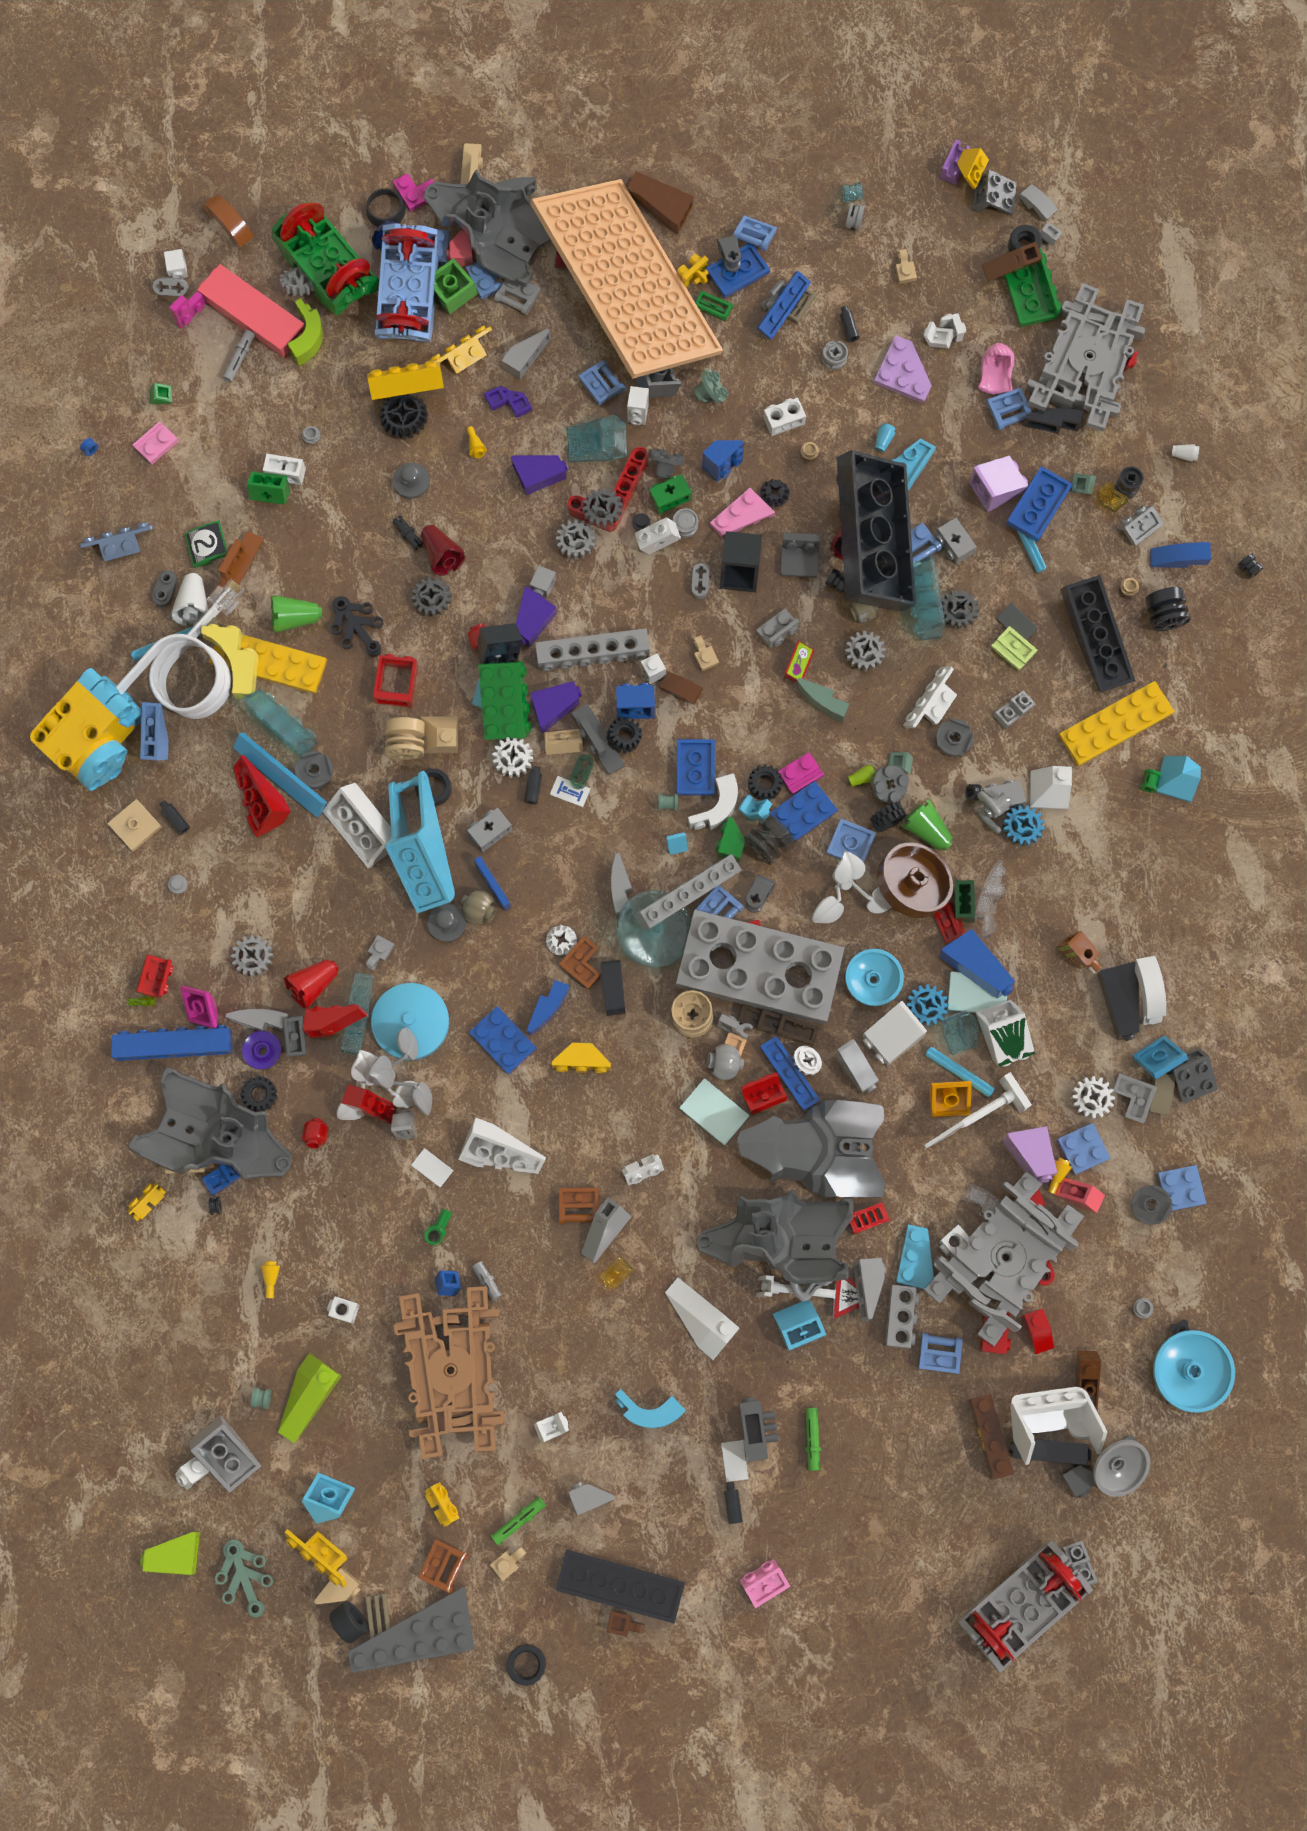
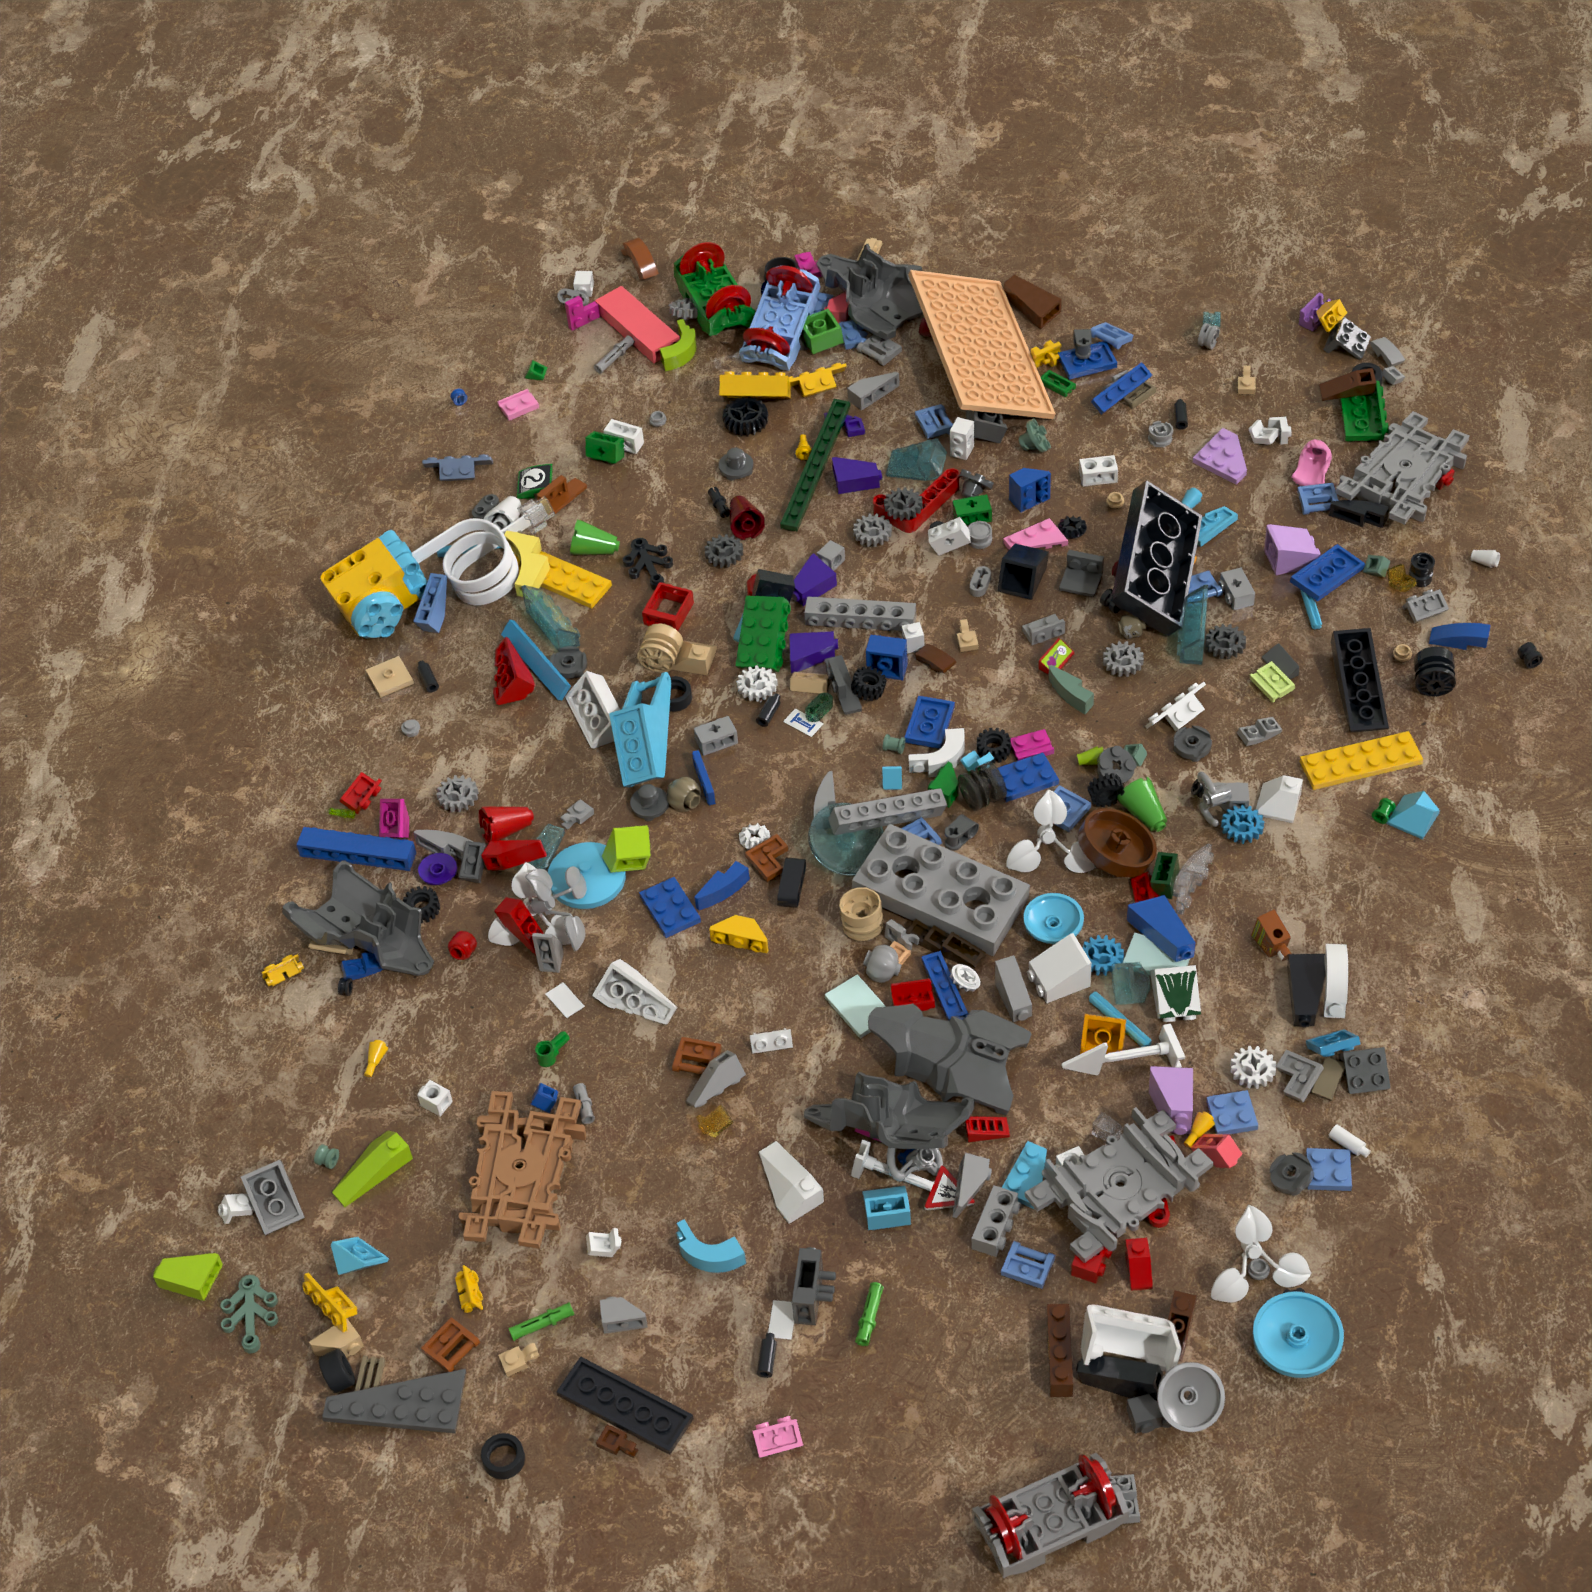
camera: 20 degrees right, 25 degrees down
(446, 992) = (627, 849): none -> lime slope
(495, 466) = (815, 465): none -> dark green plate
(1136, 1289) = (1250, 1229): none -> white plant
(1194, 1156) = (1349, 1141): none -> white cylinder

